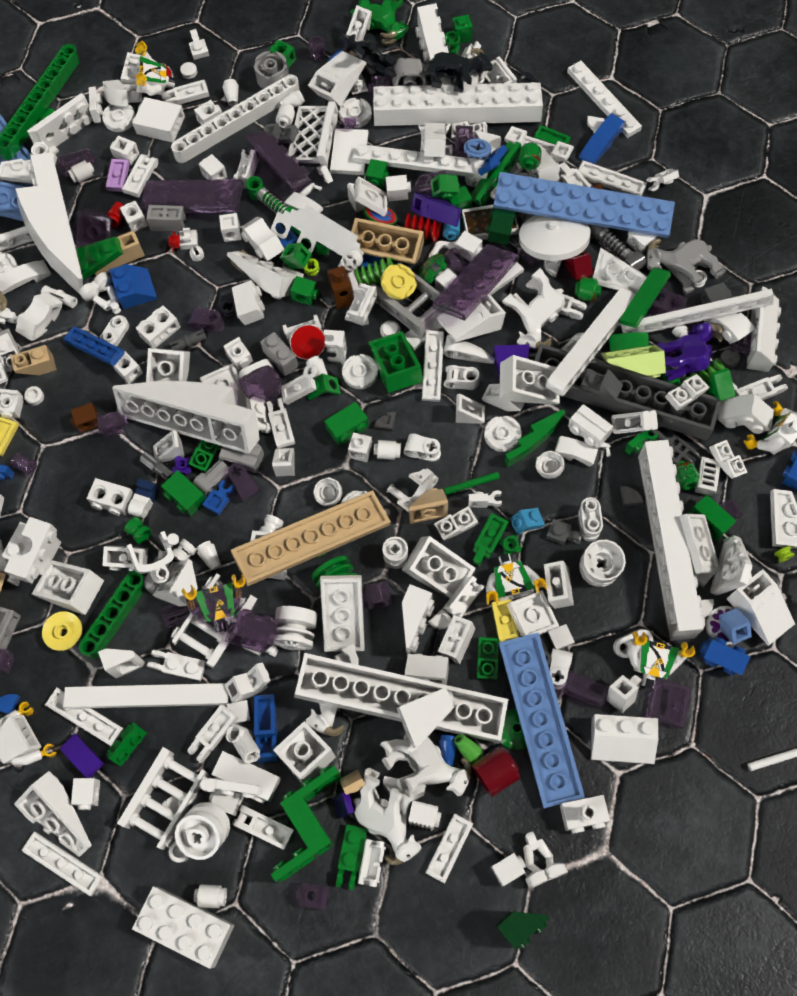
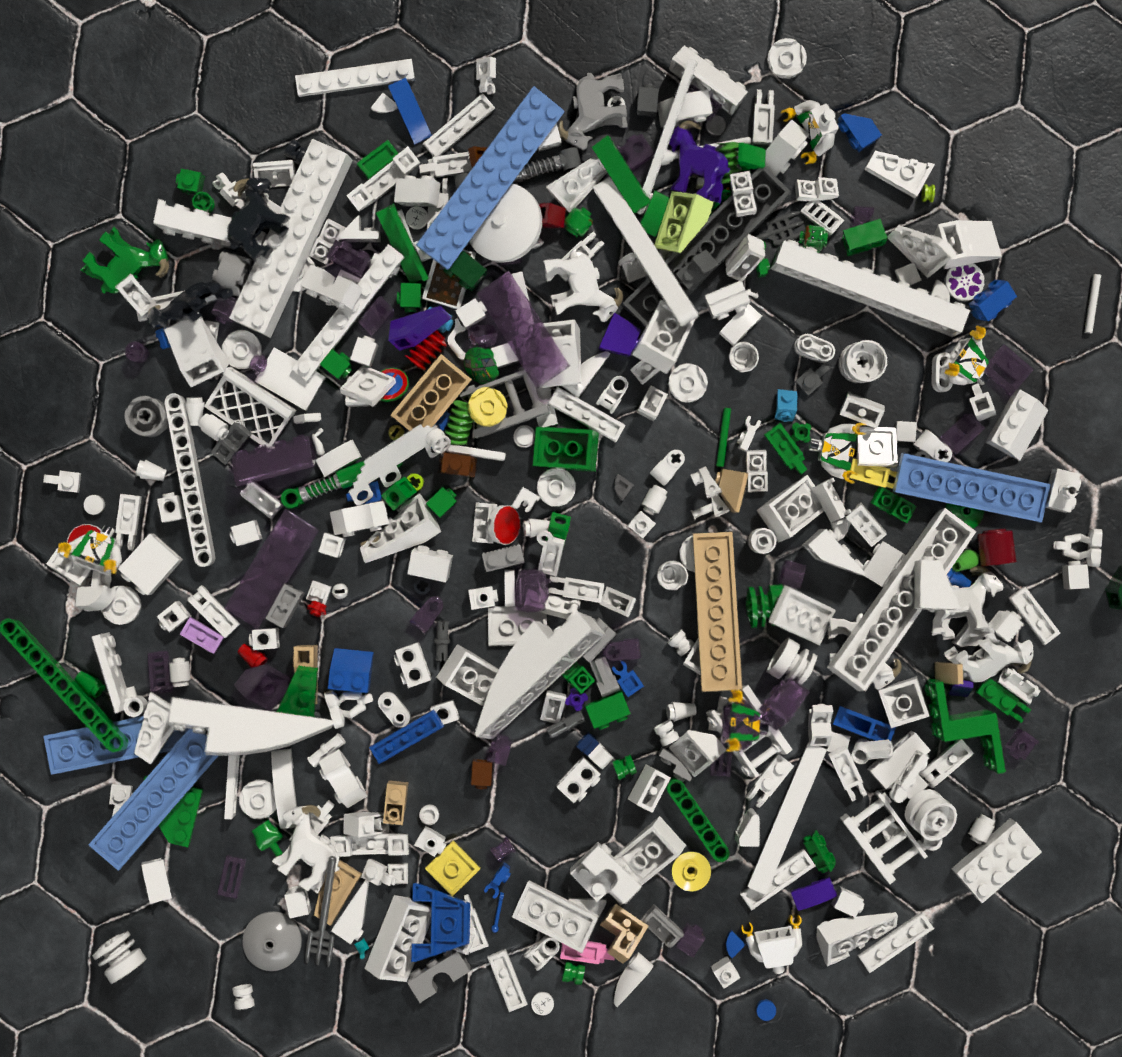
camera: 65 degrees left, 20 degrees up
(95, 107) = (89, 622): white plate -> none
(159, 566) = (678, 761): white piece -> none
(286, 50) = (116, 392): green brick -> none
(346, 422) = (609, 525): green brick -> none
(361, 304) = (494, 455): white hinge -> none
(445, 186) = (402, 307): green brick -> none
(473, 144) = (362, 252): medium blue gear -> none
(493, 160) = (395, 243): blue plate -> none
(530, 156) = (408, 202): green head -> none
(537, 435) = (707, 349): green slope -> none
(630, 496) = (807, 299): flat silver tile -> none
(700, 543) = (890, 266): white tile -> none
(735, 626) = (974, 278): medium blue brick -> none

